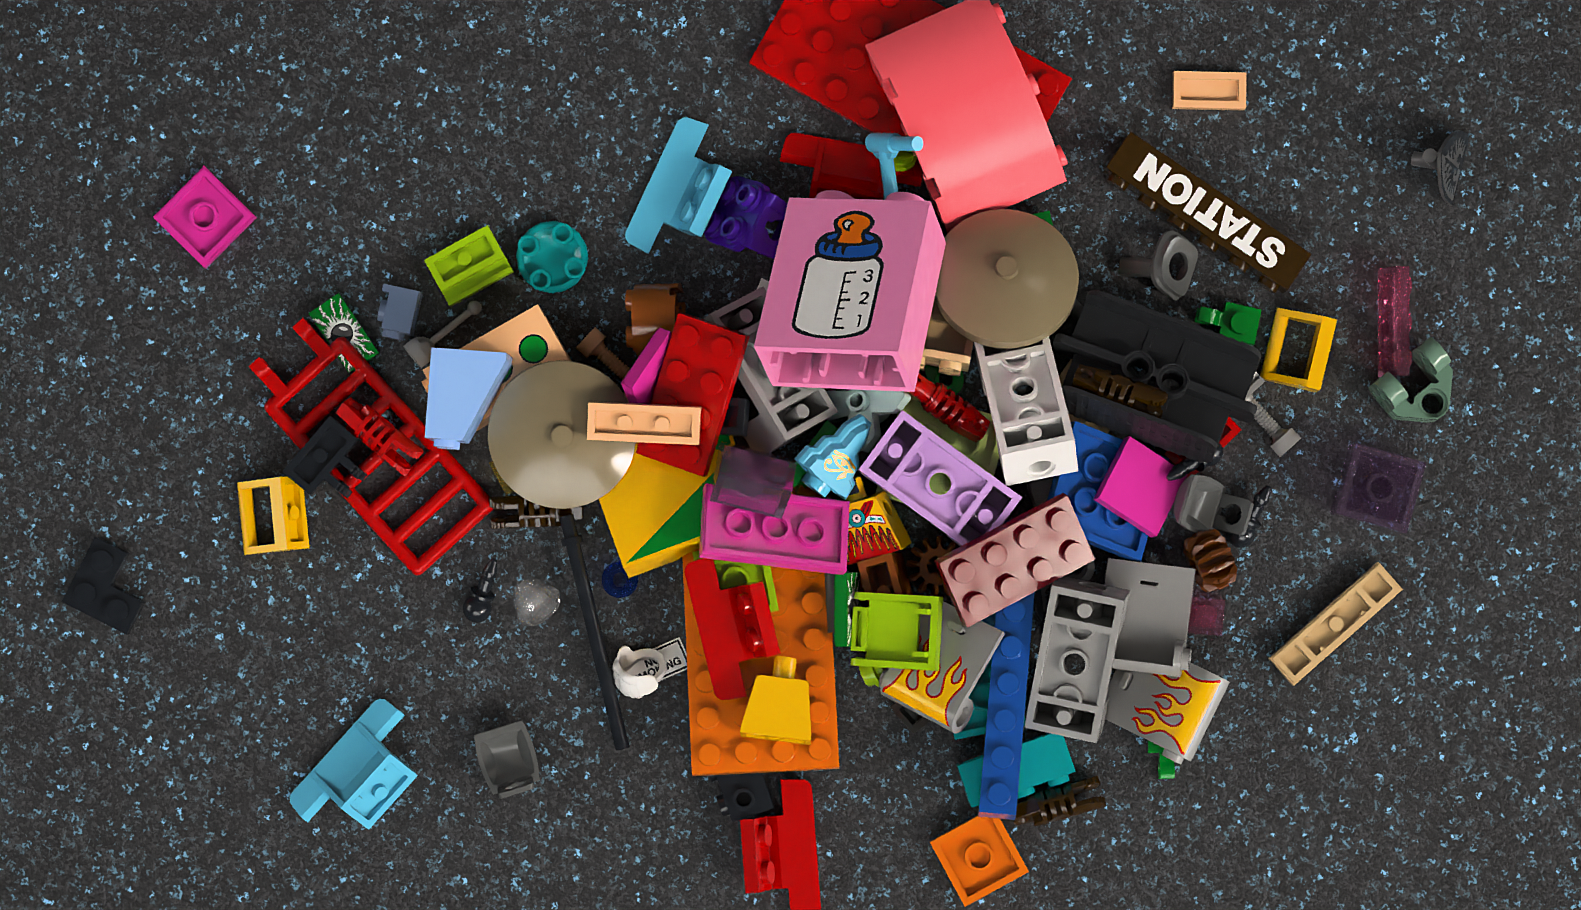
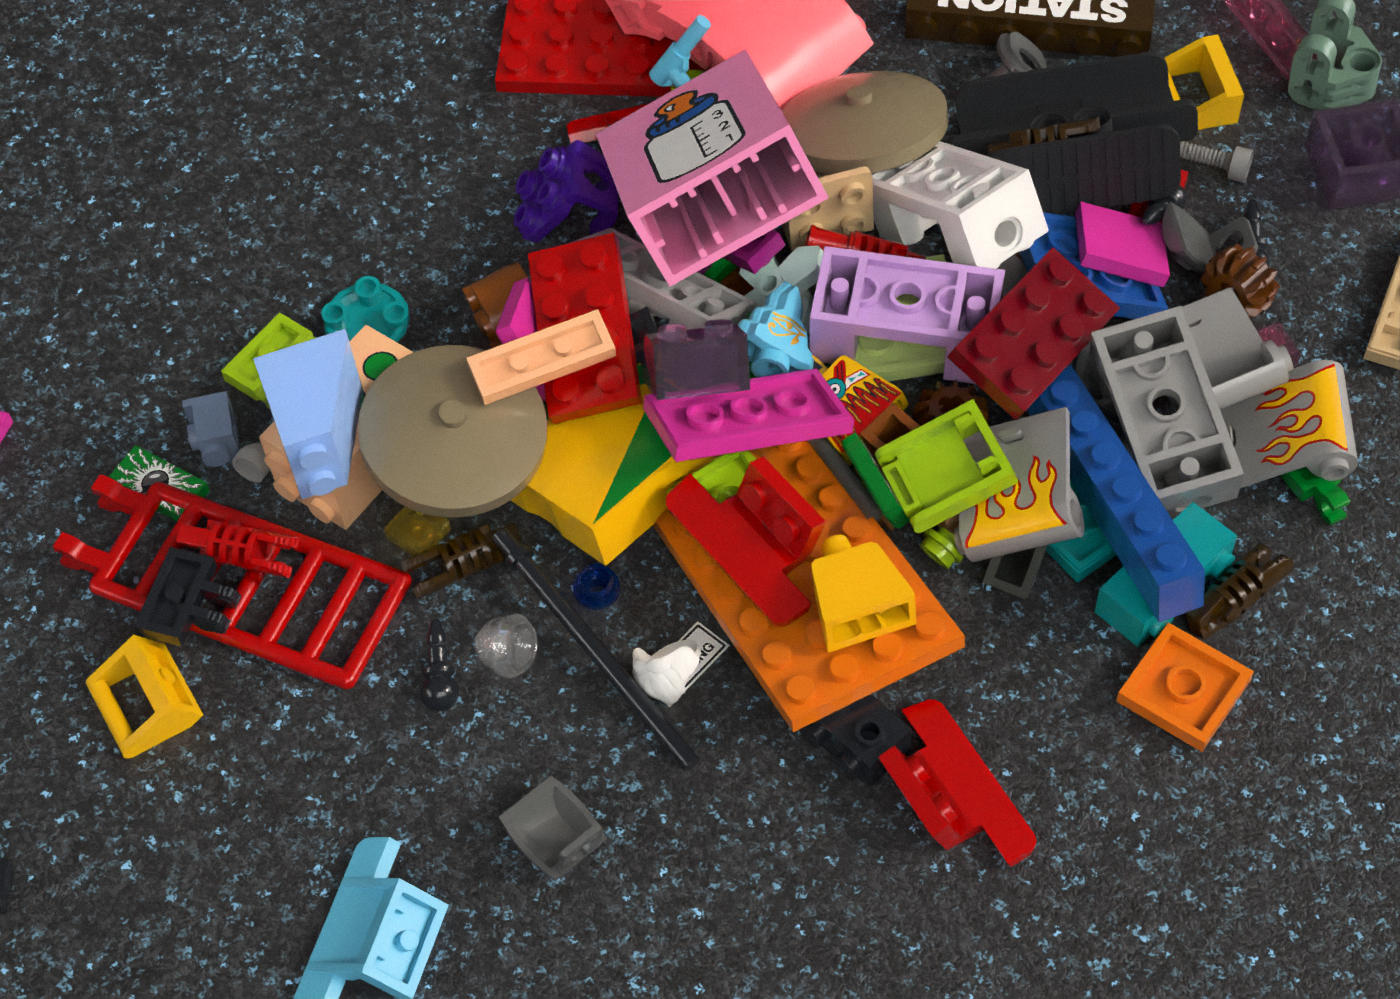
camera: 25 degrees left, 30 degrees down
(680, 189) = (477, 210): medium azure plate -> none

